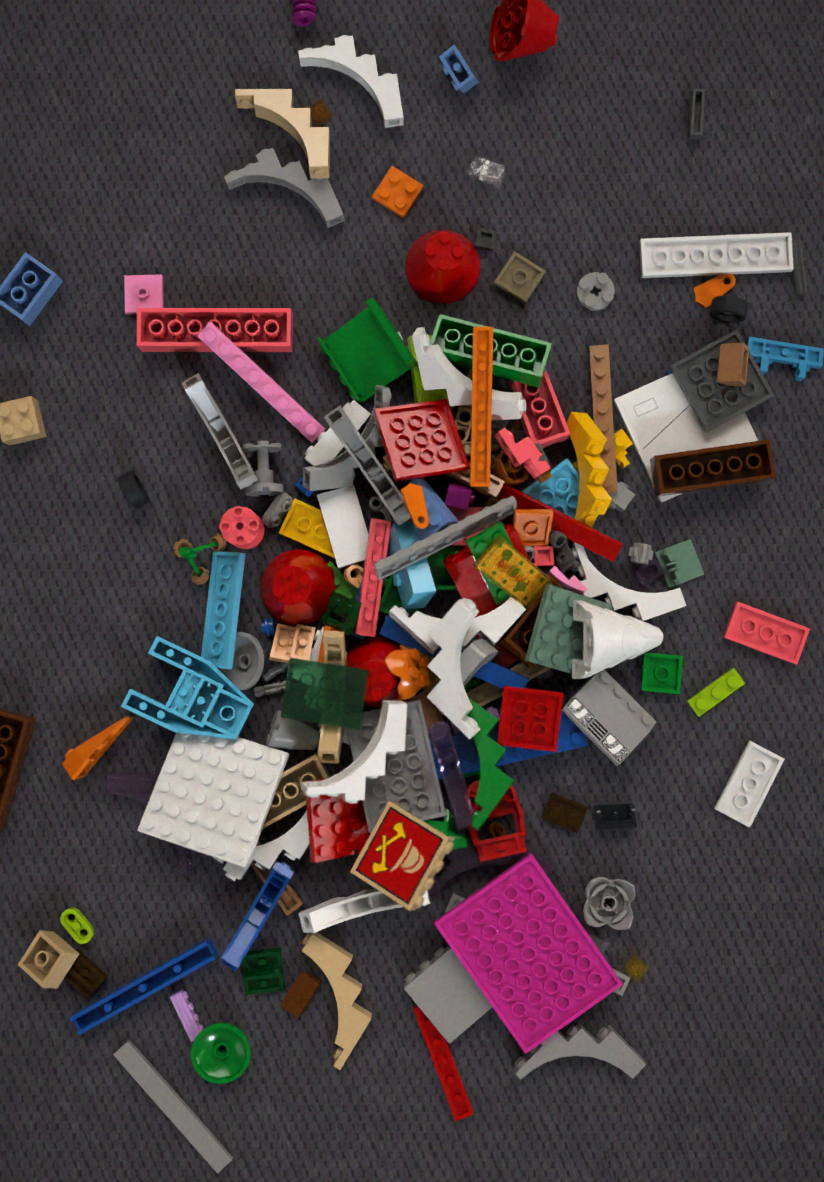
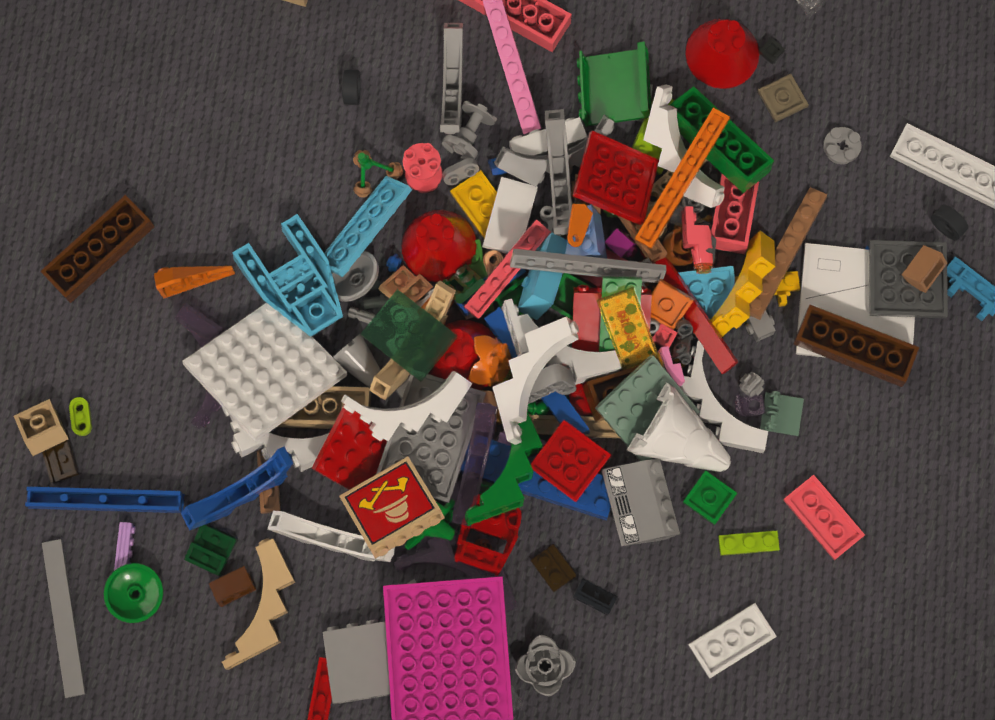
camera: 35 degrees right, 10 degrees down
(712, 288) = (948, 198): orange piece -> none

